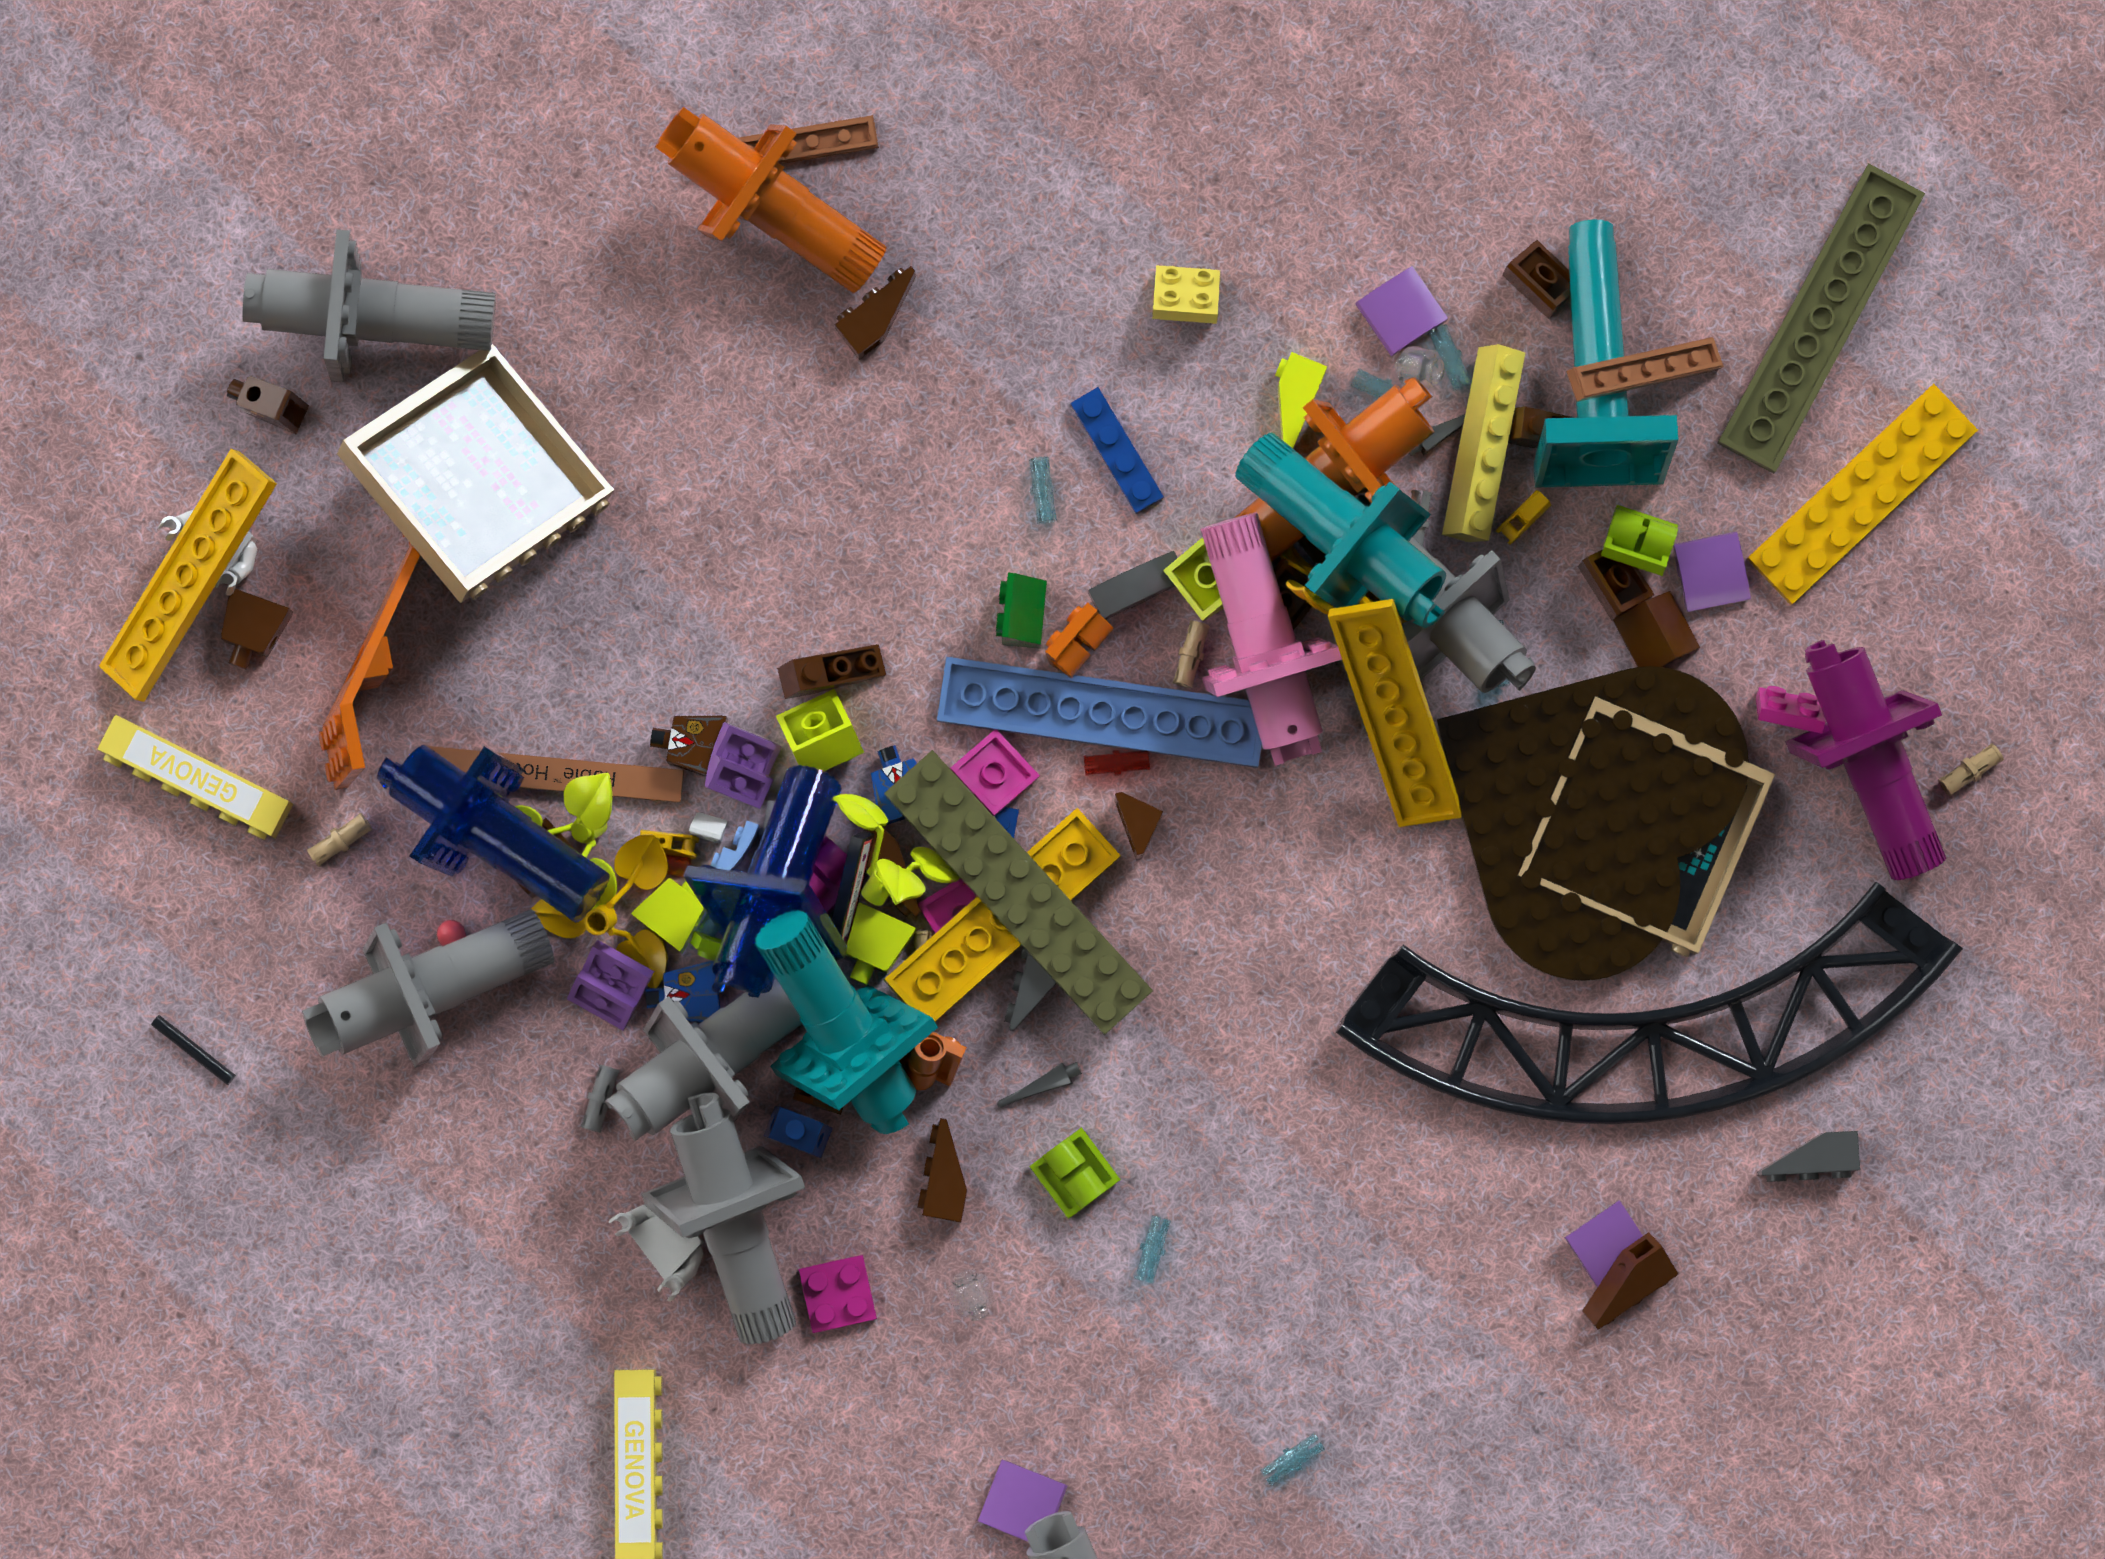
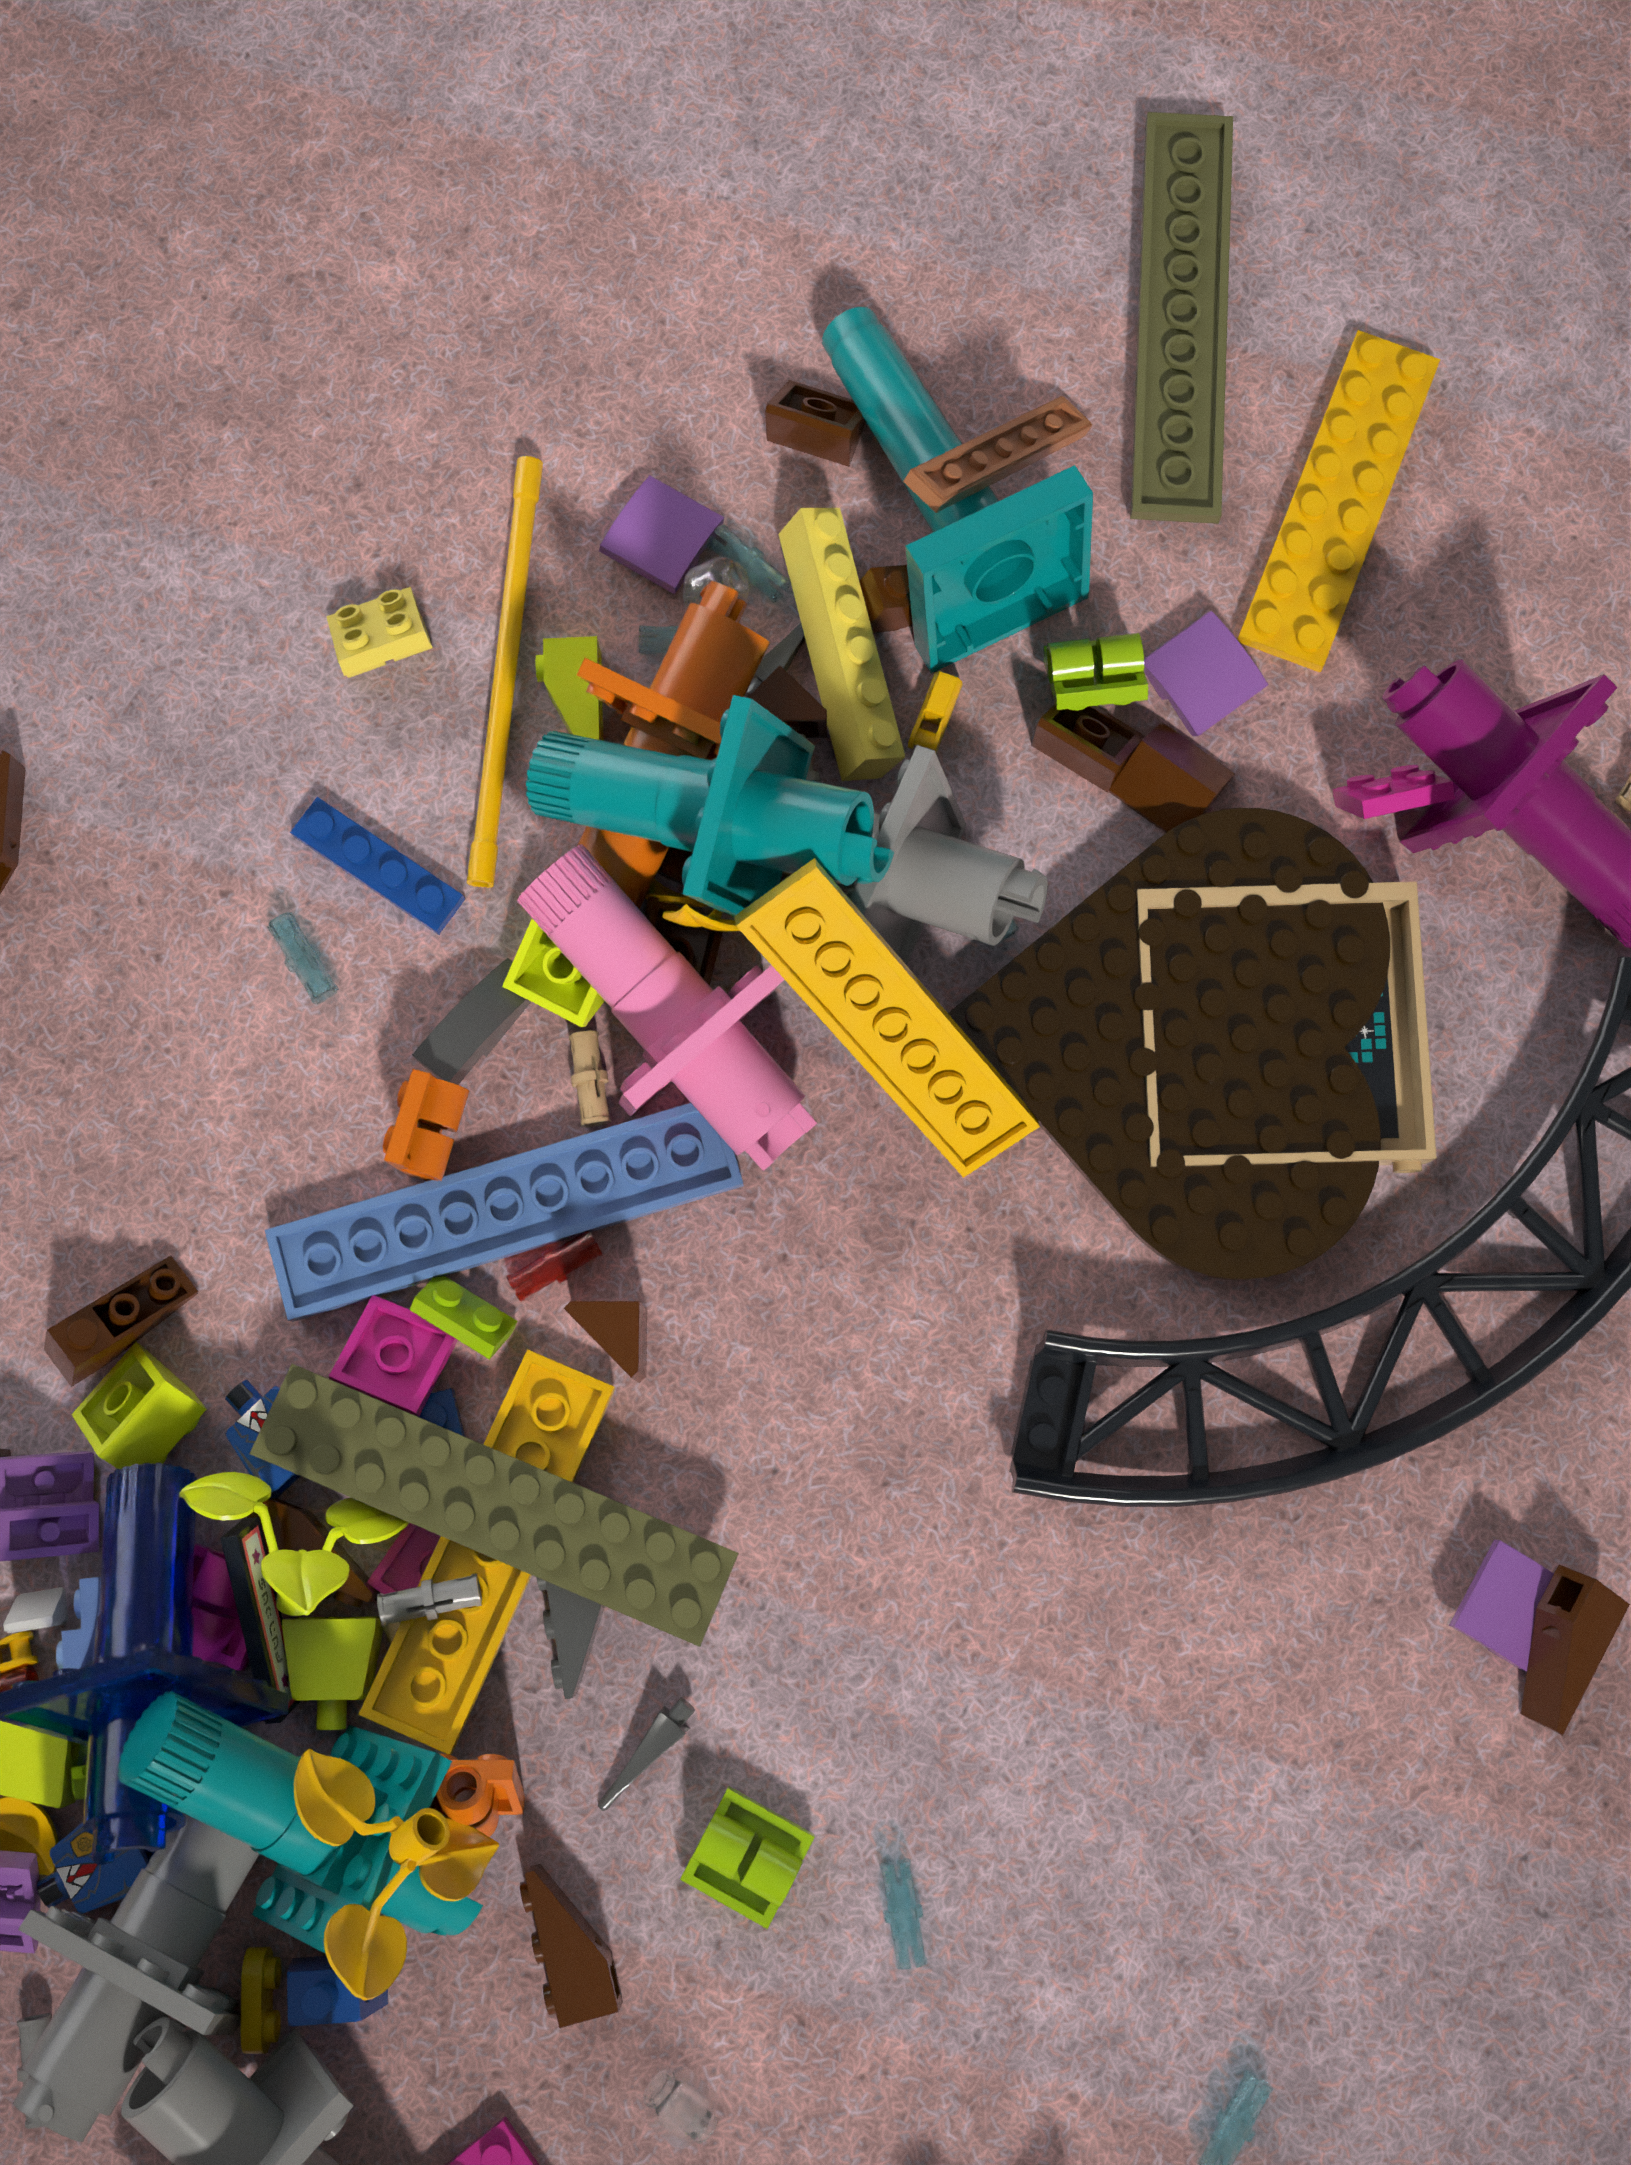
camera: 20 degrees left, 5 degrees down
(756, 1107) = (258, 2020): none -> yellow plate
(906, 1083) = (452, 1856): none -> yellow plant
(956, 931) = (429, 1599): none -> light grey pin
(1023, 611) = (337, 1123): green slope -> none
(1046, 768) = (463, 1315): none -> lime plate
(1191, 469) = (484, 846): none -> yellow piece
(1424, 472) = (791, 704): none -> reddish brown slope

